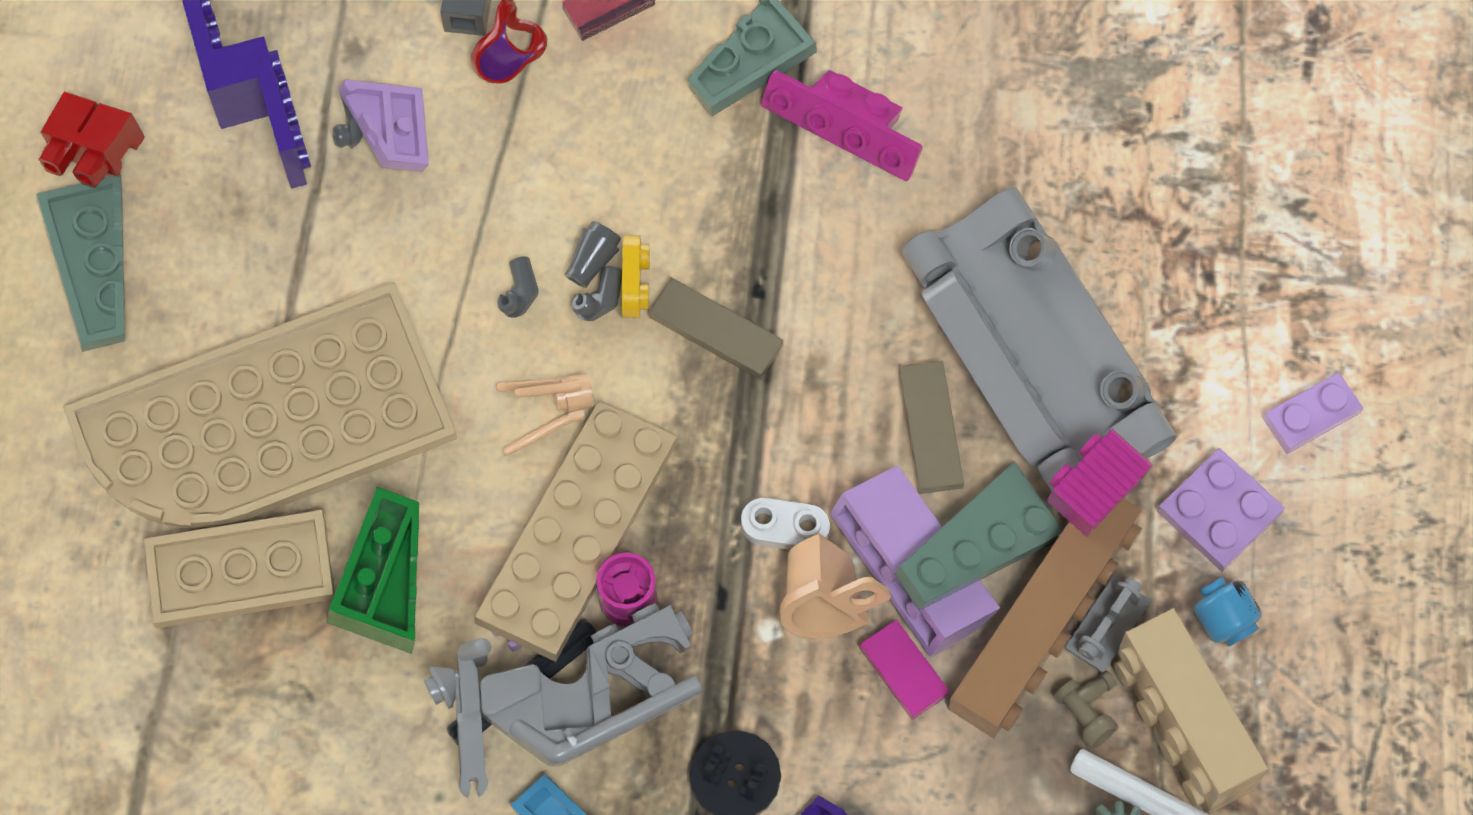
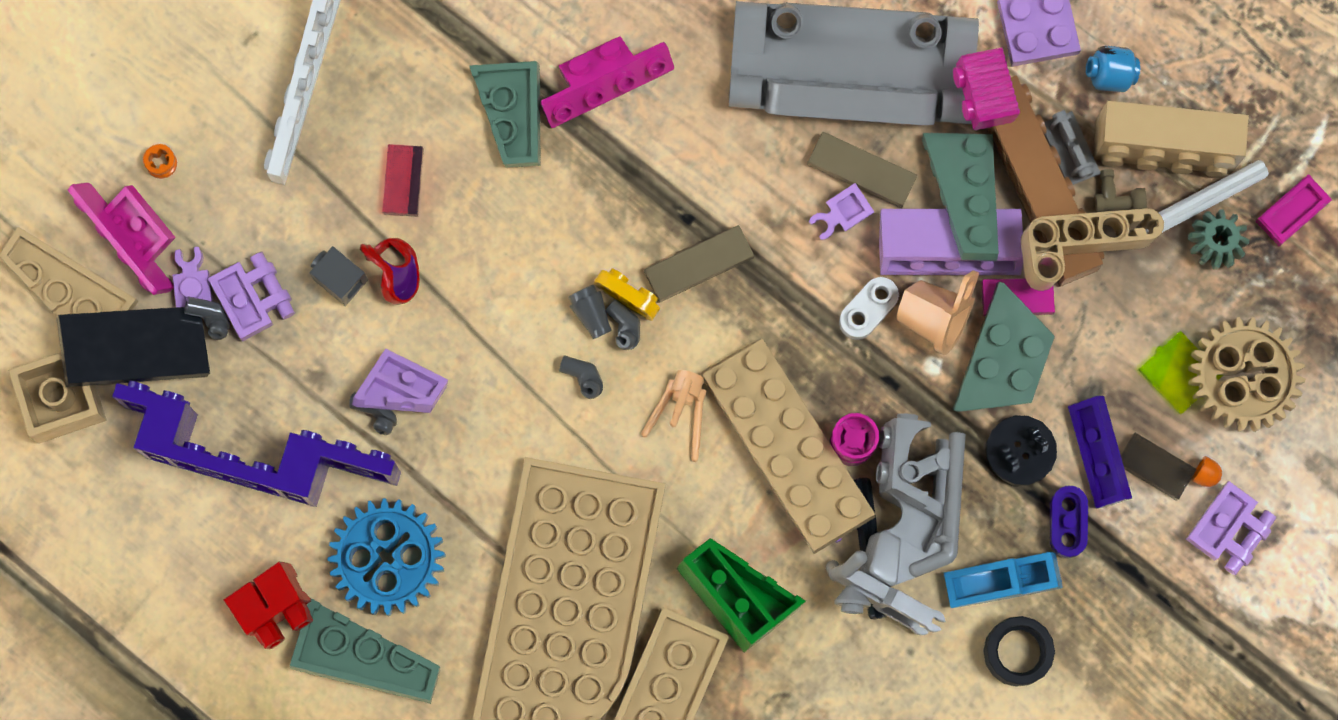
camera: 60 degrees left, 10 degrees up
(206, 218) = (363, 535): none -> dark azure gear
(827, 694) = (1005, 356): none -> sand green wing
(873, 436) = (846, 209): none -> lavender plate
(1007, 692) = (1093, 239): none -> tan beam

